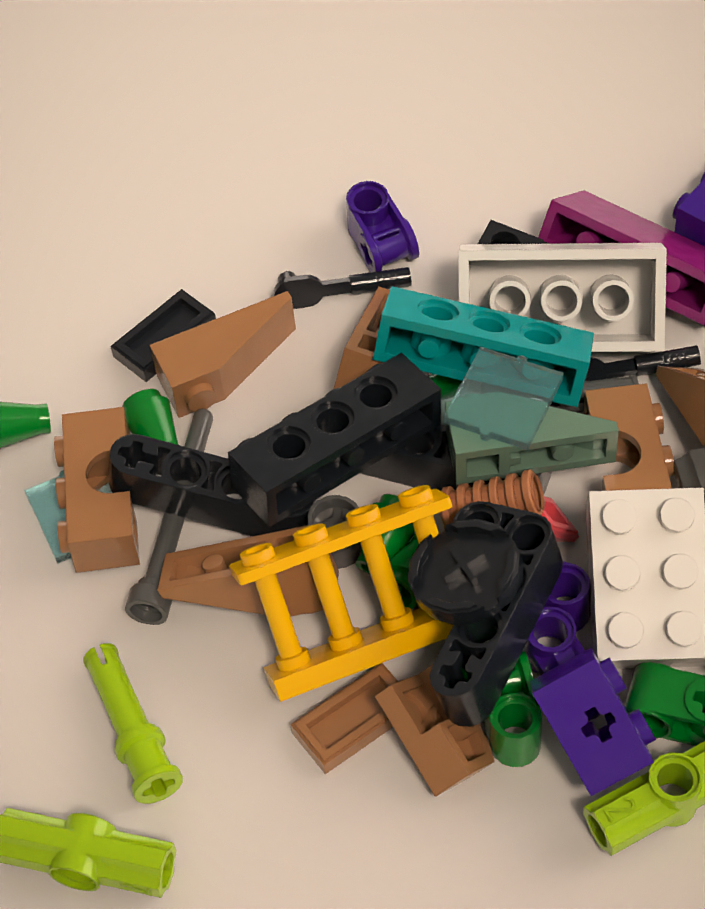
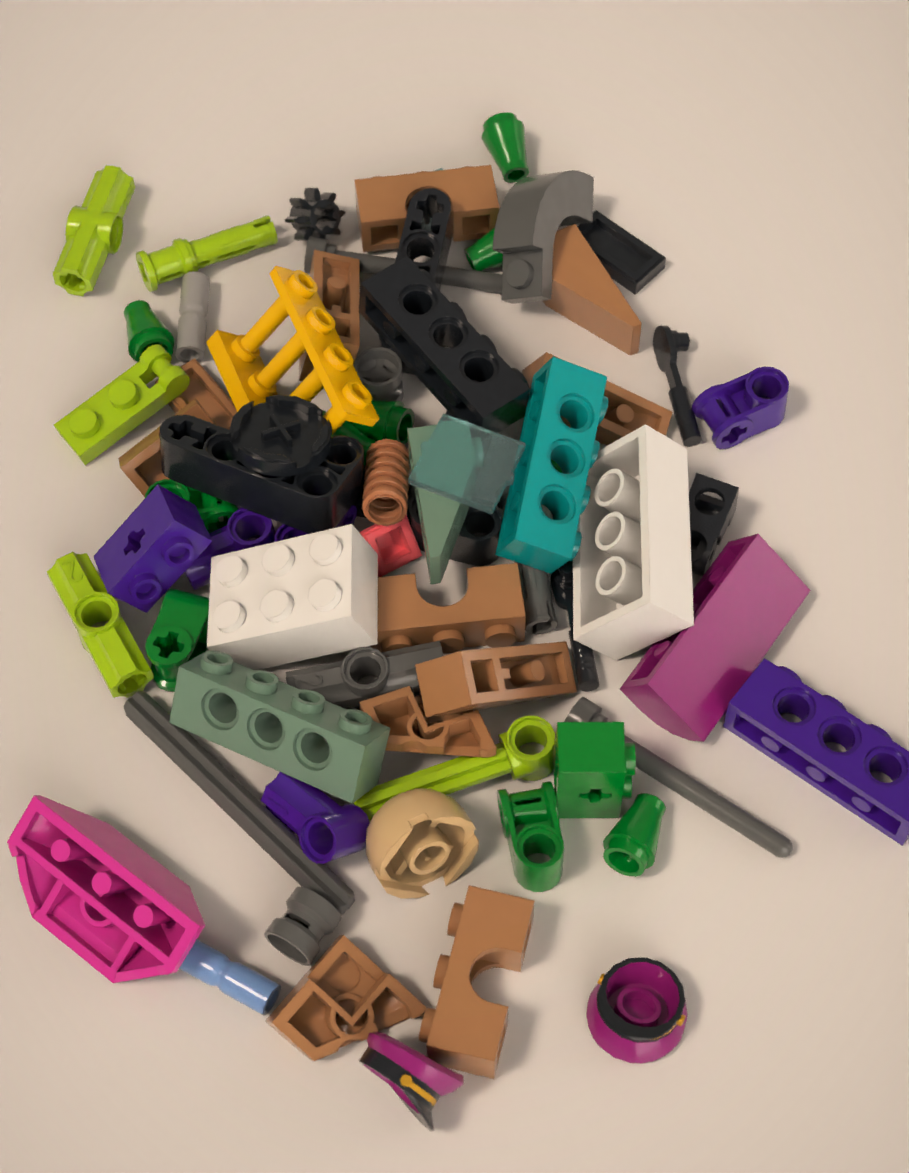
camera: 85 degrees right, 5 degrees up
(96, 601) = (315, 215): none -> black gear
(161, 370) = (528, 229): none -> dark grey arch
(217, 732) = (192, 322): none -> light grey piece
(253, 778) = (145, 330): none -> green cone
(363, 796) = (123, 404): none -> lime plate

